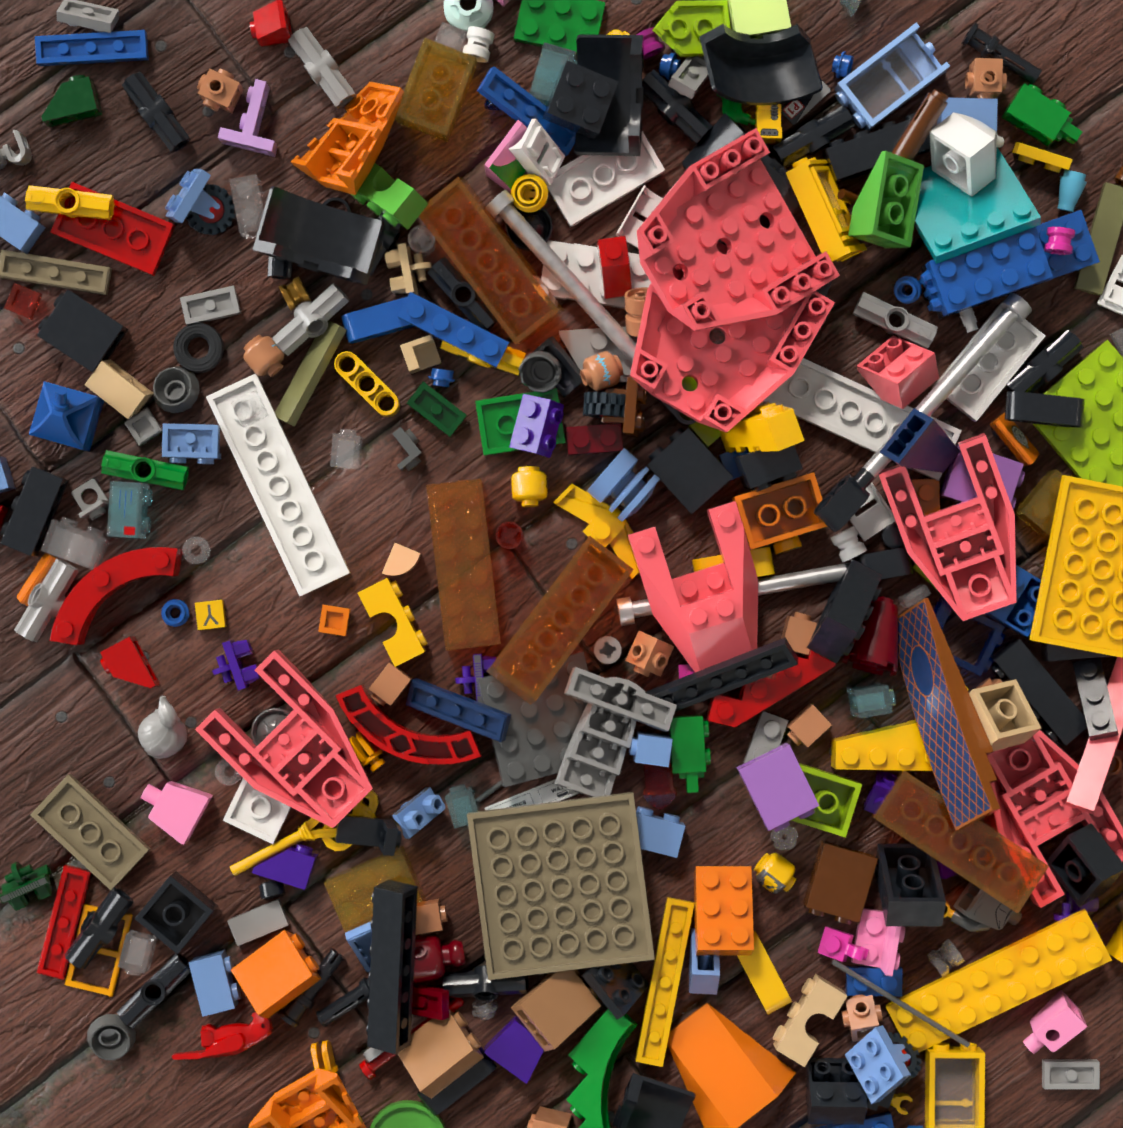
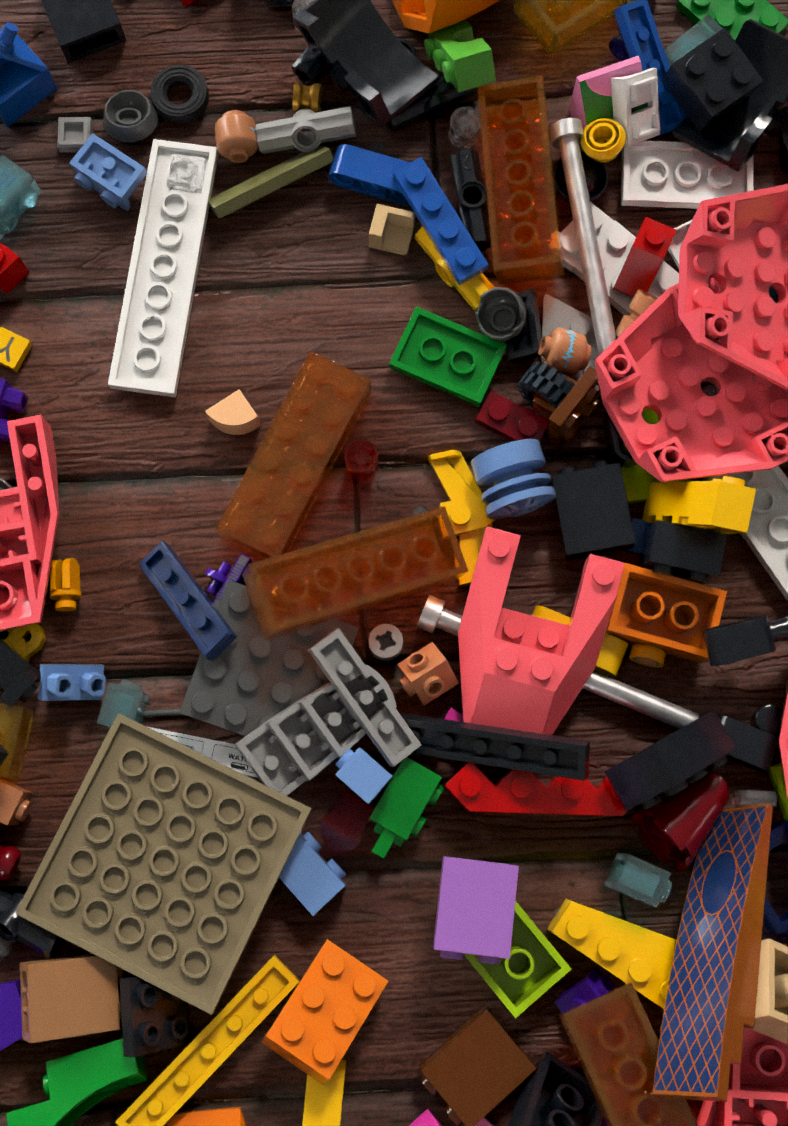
camera: 30 degrees right, 10 degrees down
(118, 388) = (75, 81): tan hinge -> none
(161, 473) = (34, 160): green piece -> none
(188, 546) = (35, 271): clear plate -> none
(210, 305) = (219, 62): light grey plate -> none
(334, 620) = (126, 431): orange plate -> none
(346, 450) = (254, 274): clear brick -> none
(361, 372) = (317, 211): yellow beam -> none
(385, 598) = (184, 499): yellow arch -> none
(389, 684) = (136, 531): nougat brick -> none
(400, 740) = (94, 573): red brick -> none
(402, 258) = (437, 142): tan hips -> none
(408, 442) = (317, 322): dark grey bracket -> none
(436, 409) = (371, 292): dark green plate -> none
(441, 377) = (398, 265): blue plate -> none
(529, 486) = (415, 424): yellow head -> none
(537, 425) = (463, 365): bracket -> none
(703, 971) = (257, 1068): medium blue slope -> none
(766, 736) = (499, 845): light grey plate -> none
(775, 873) = (410, 1008): yellow head -> none
(789, 842) = (449, 983): clear plate -> none
(799, 631) = (605, 753): nougat brick -> none
(807, 726) = (549, 865): nougat brick -> none
(848, 543) = (715, 695): white wheel -> none
(875, 517) = (759, 687): white piece -> none

